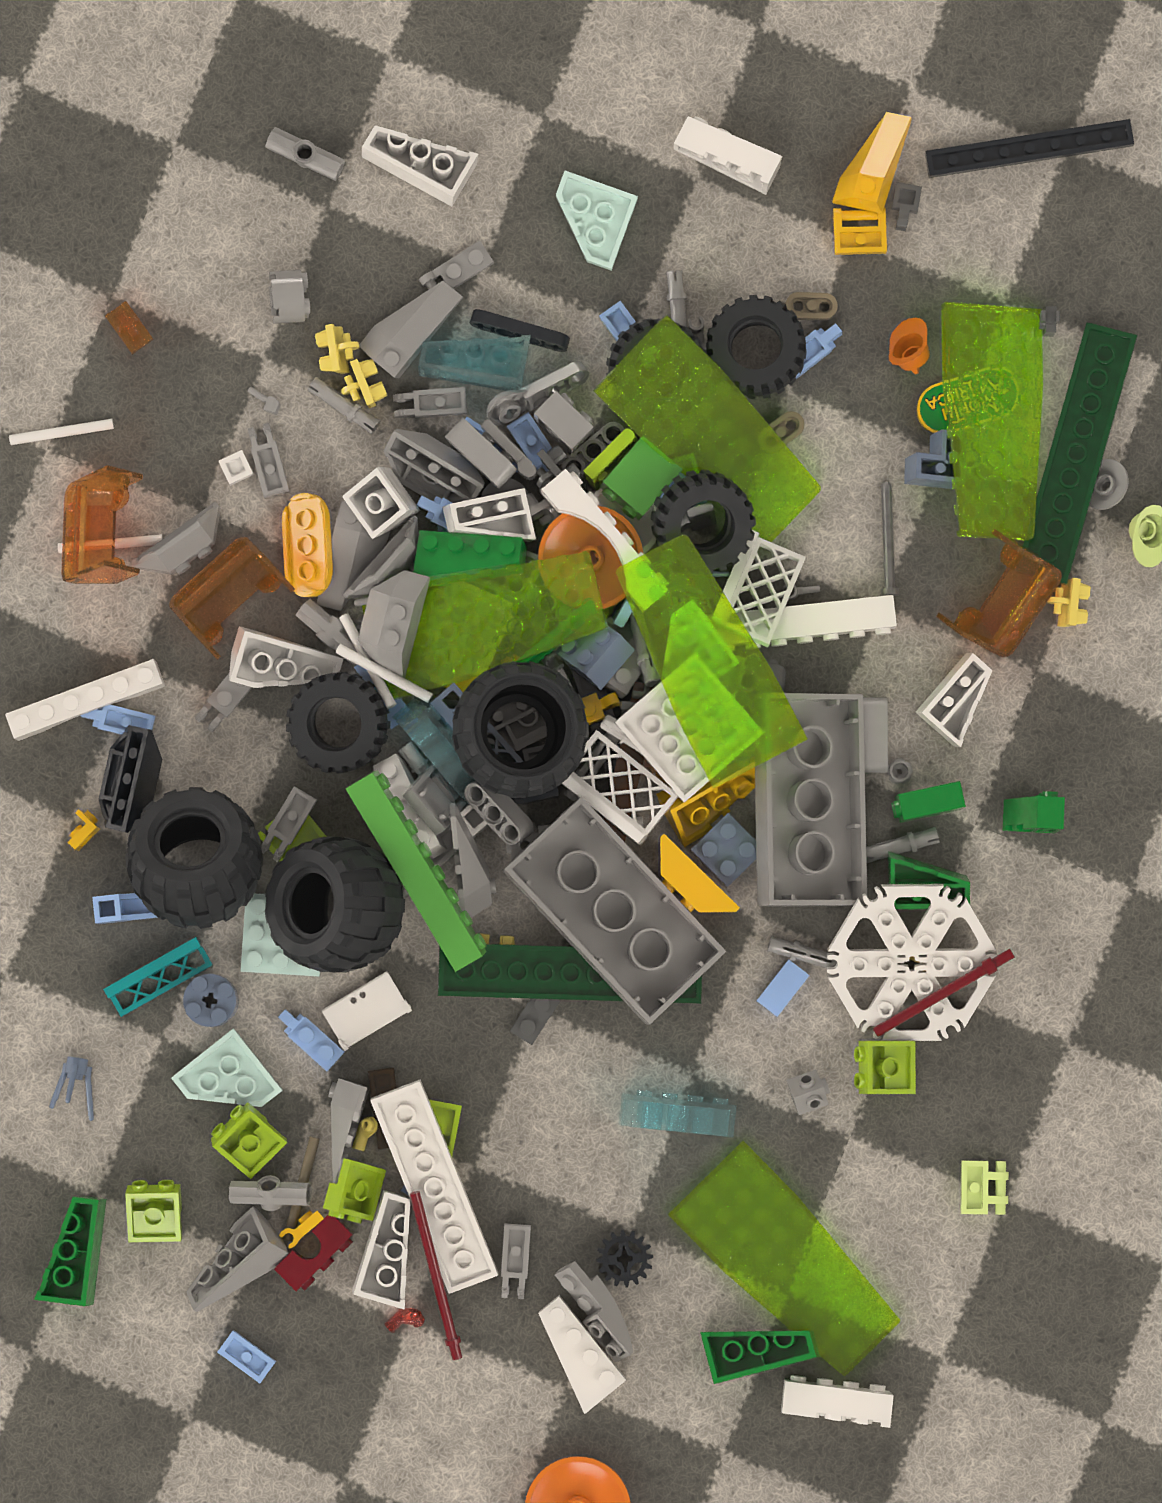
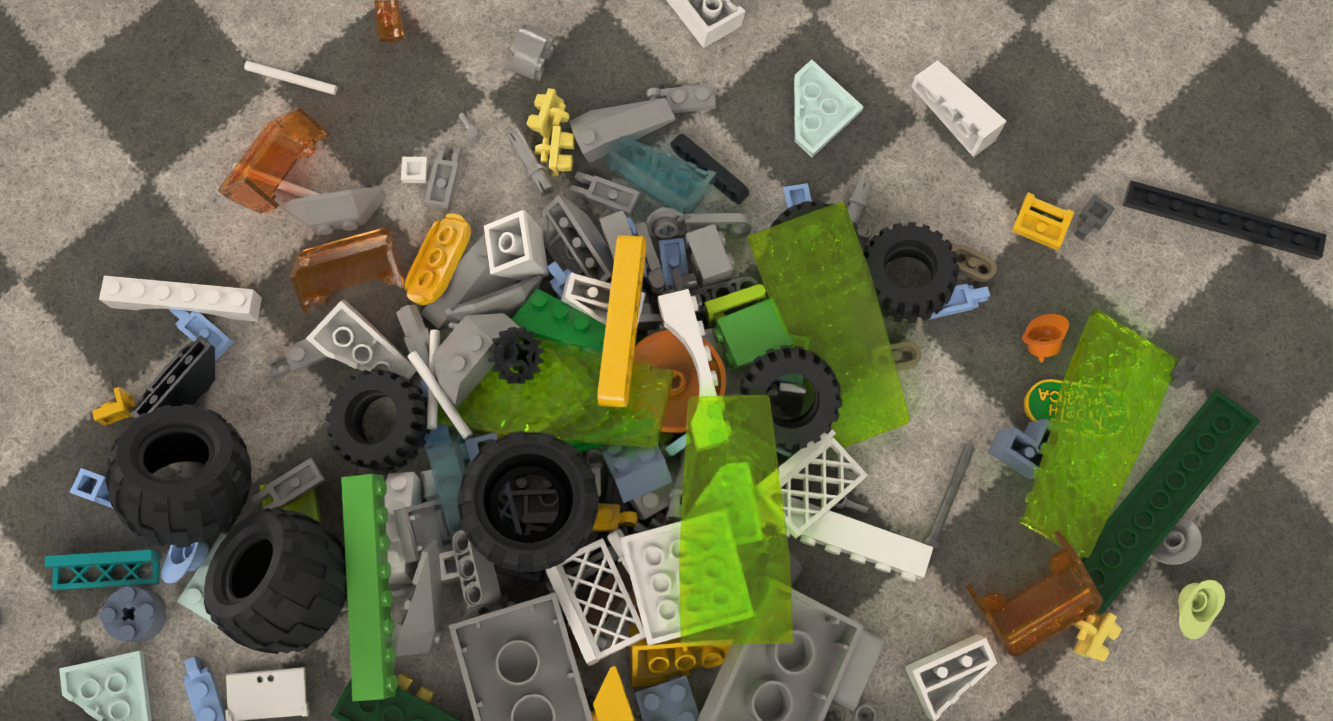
camera: 25 degrees right, 10 degrees down
(228, 936) = (183, 560): none -> light blue piece
(439, 604) = (513, 354): none -> black gear
(519, 526) = (622, 321): none -> yellow beam
(872, 170) = (1077, 176): yellow wedge -> none

